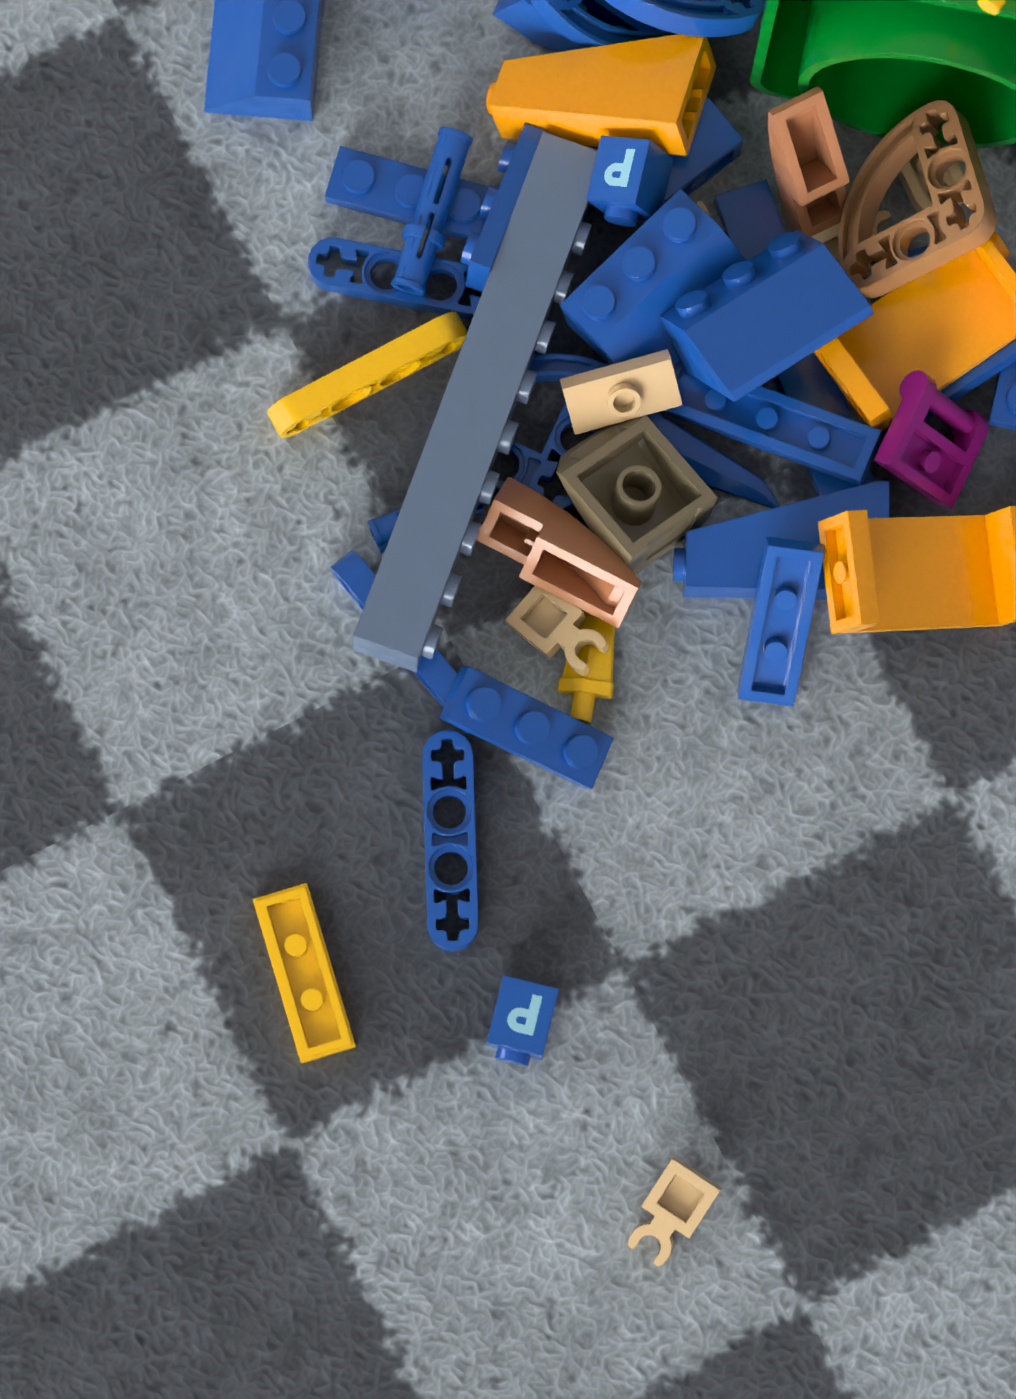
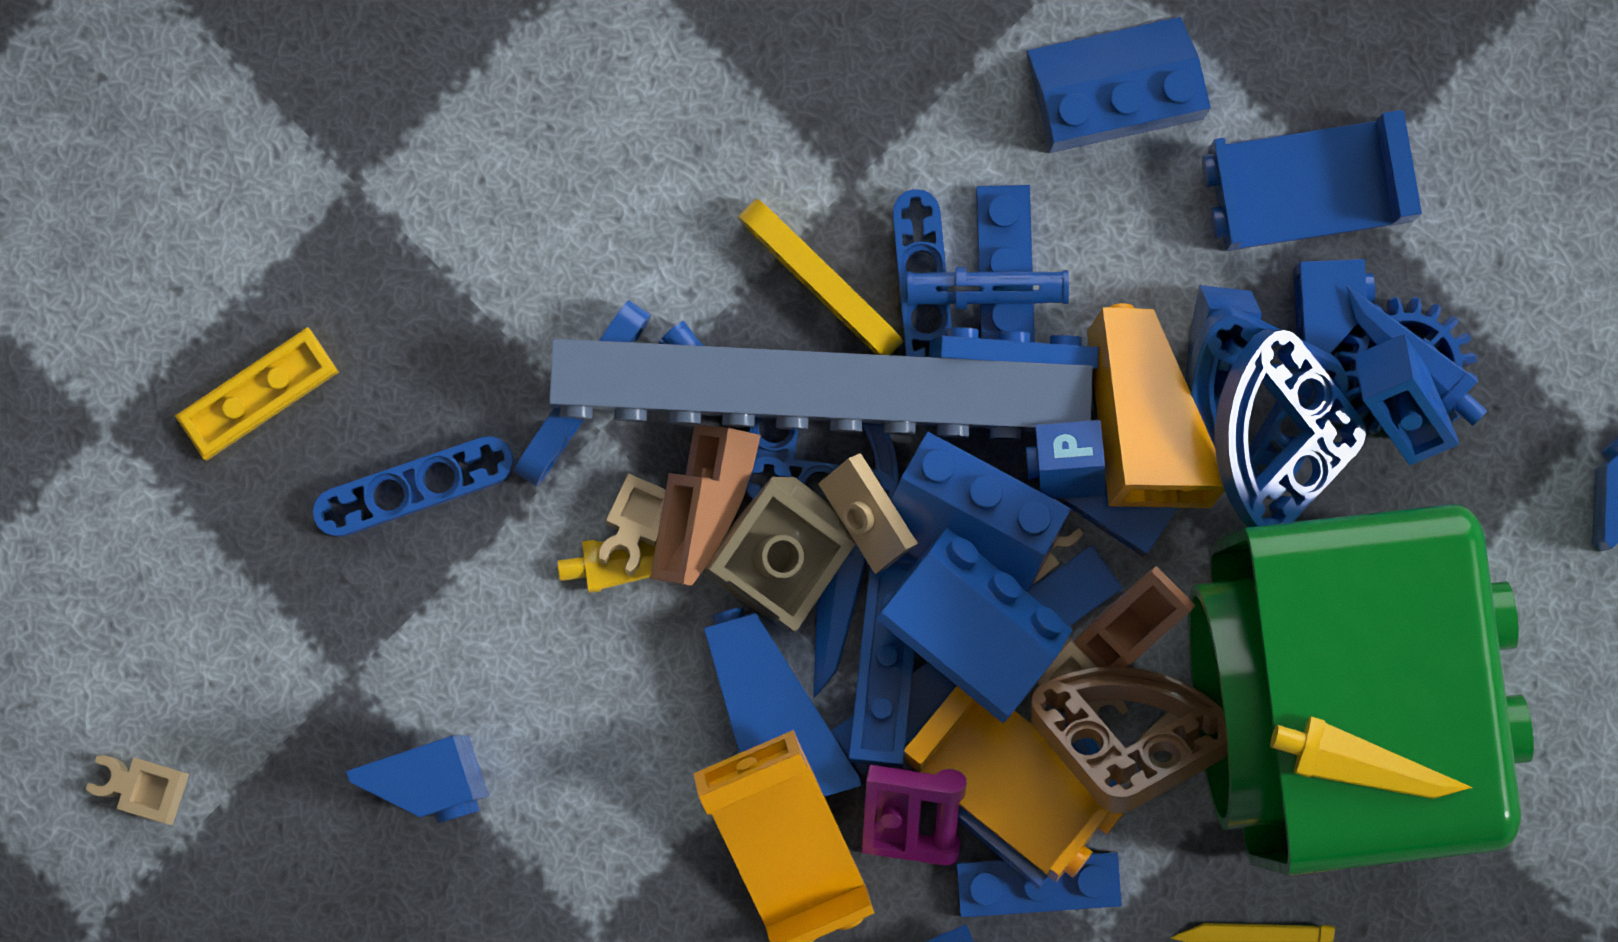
camera: 75 degrees right, 5 degrees up
(521, 1020) = (267, 600): blue brick -> none
(526, 727) = (532, 523): blue plate -> none
(757, 894) = (428, 780): none -> blue slope
(780, 621) = (697, 723): blue plate -> none

